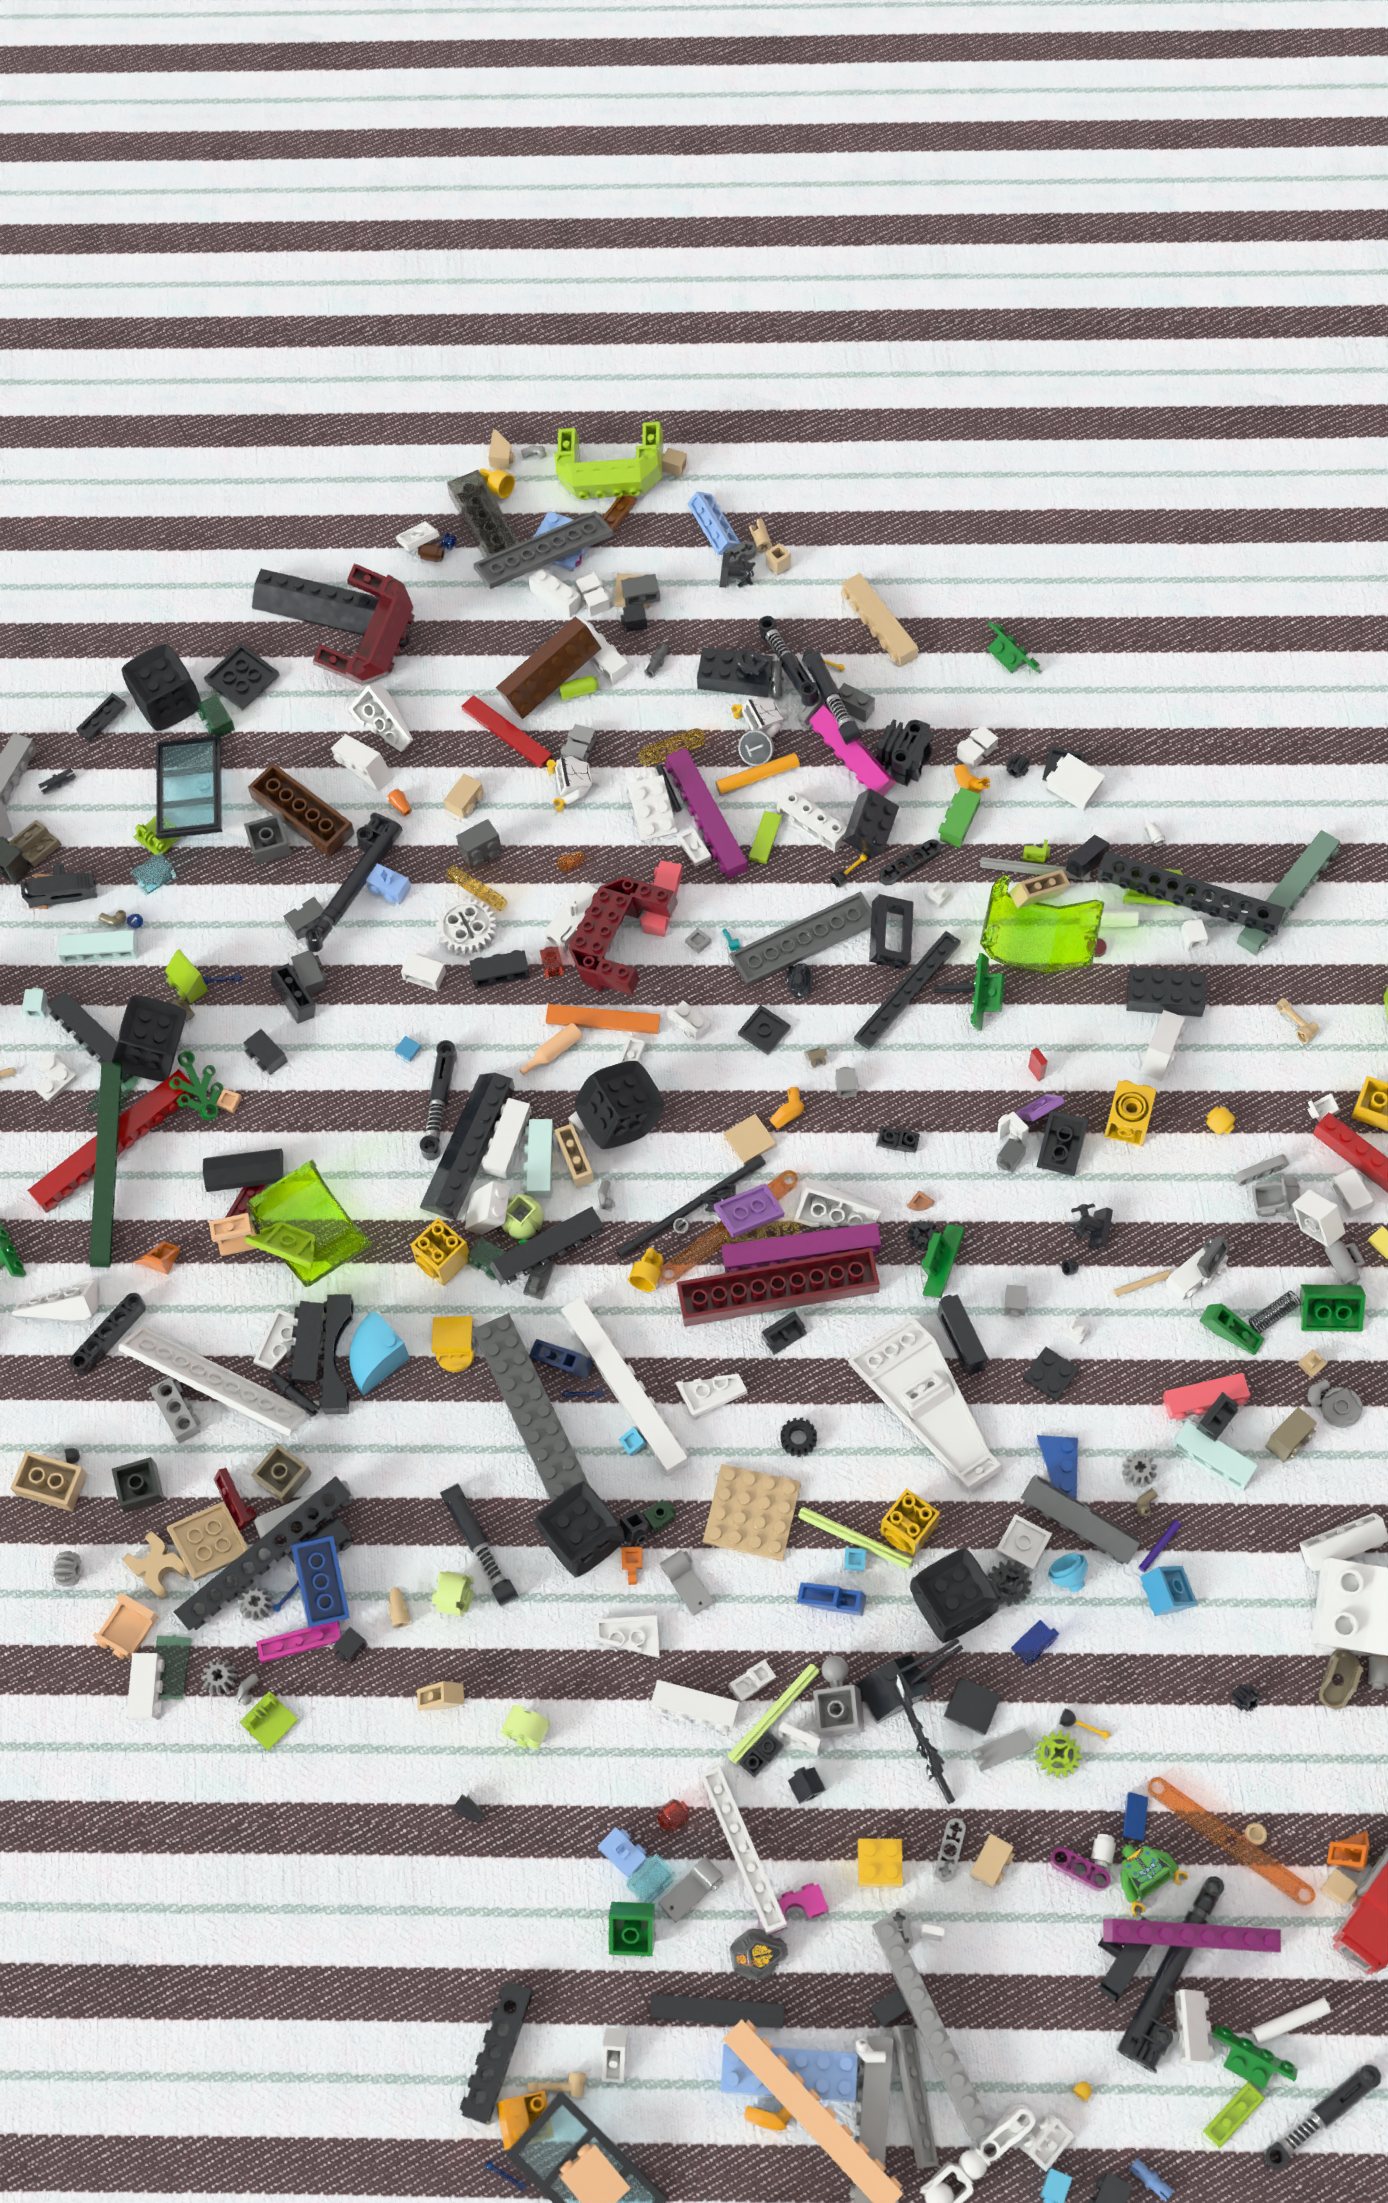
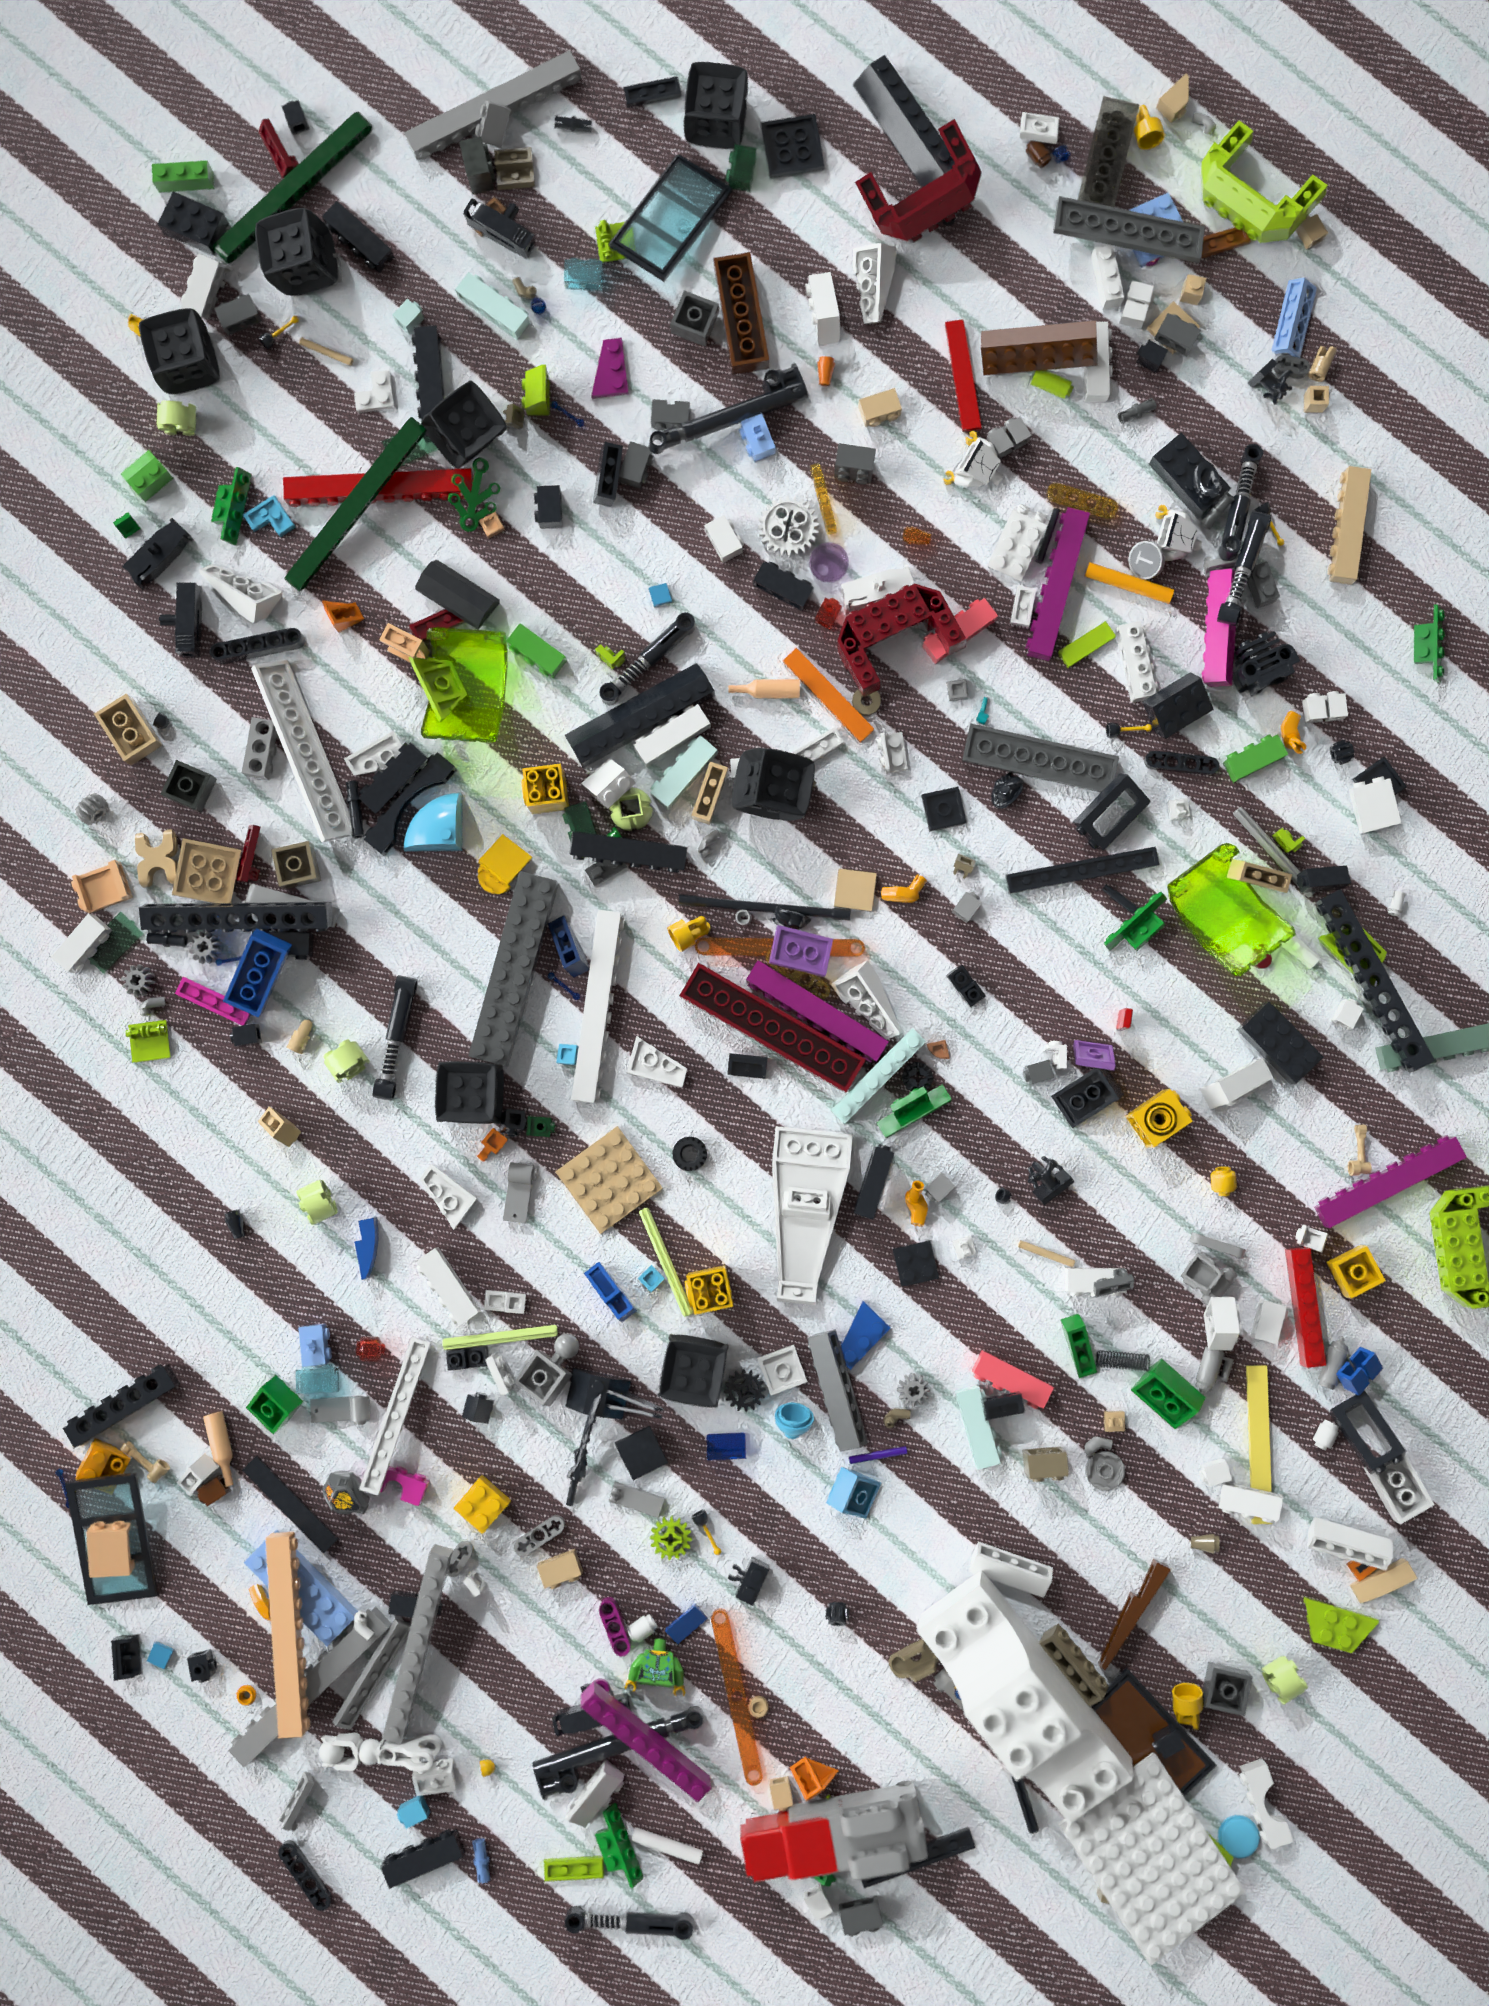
camera: 40 degrees right, 20 degrees up
(31, 1359) = (187, 620): none -> black piece
(37, 1227) = (270, 512): none -> medium azure tile
(217, 1624) = (167, 939): none -> black pin
(232, 924) = (611, 371): none -> magenta wing
(345, 1161) = (536, 651): none -> bright green brick
(406, 1123) = (606, 655): none -> lime bracket
(520, 927) = (829, 562): none -> clear purple piece
(597, 1730) = (367, 1247): none -> blue slope
(611, 2009) = (219, 1443): none -> light nougat piece
(624, 556) = (1192, 289): none -> tan brick
(640, 2056) = (213, 1491): none -> reddish brown brick
(642, 1006) = (866, 710): none -> dark tan piece
(892, 1257) = (878, 1076): none -> light aqua brick
(1009, 1327) = (916, 1204): none -> light orange arm
(1154, 1731) = (751, 1581): none -> black brick
(1338, 1024) = (1390, 1181): none -> magenta brick

